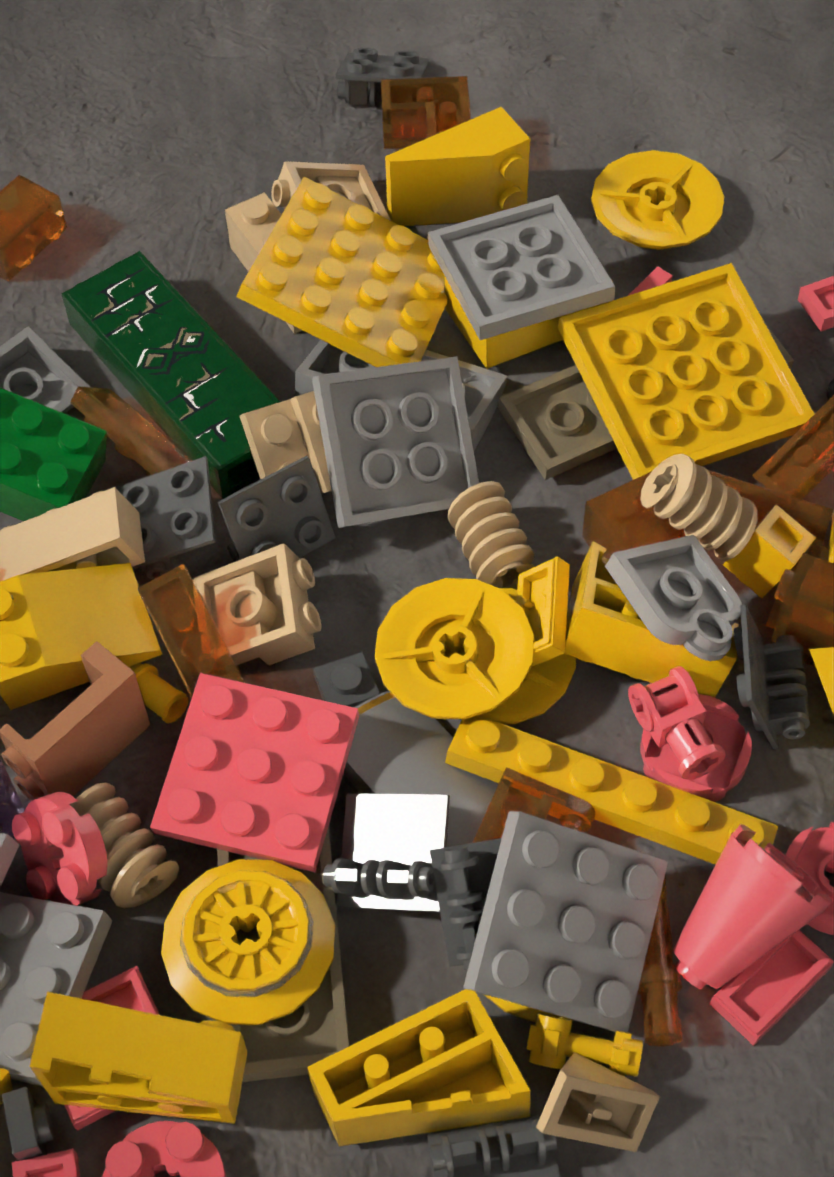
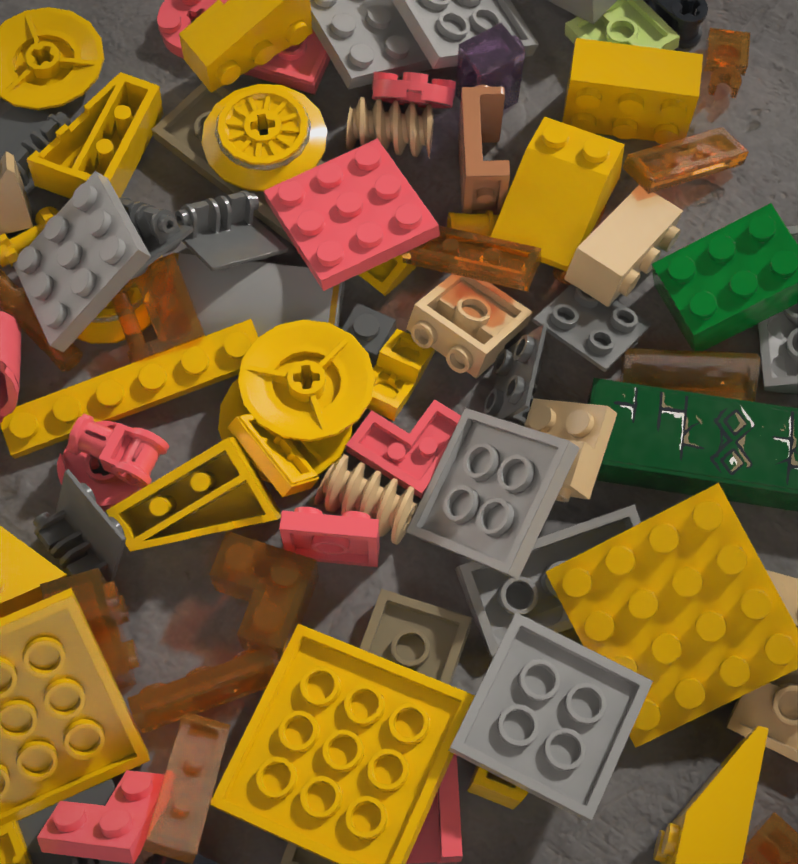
camera: 135 degrees right, 10 degrees up
(353, 629) = (397, 373): none -> yellow slope
(408, 544) = (405, 455): none -> coral plate
(555, 511) = (331, 538): none -> coral plate
(679, 594) = (176, 514): light grey plate -> none
(700, 505) = (220, 600): tan piece -> none
(773, 547) = (157, 644): yellow brick -> none

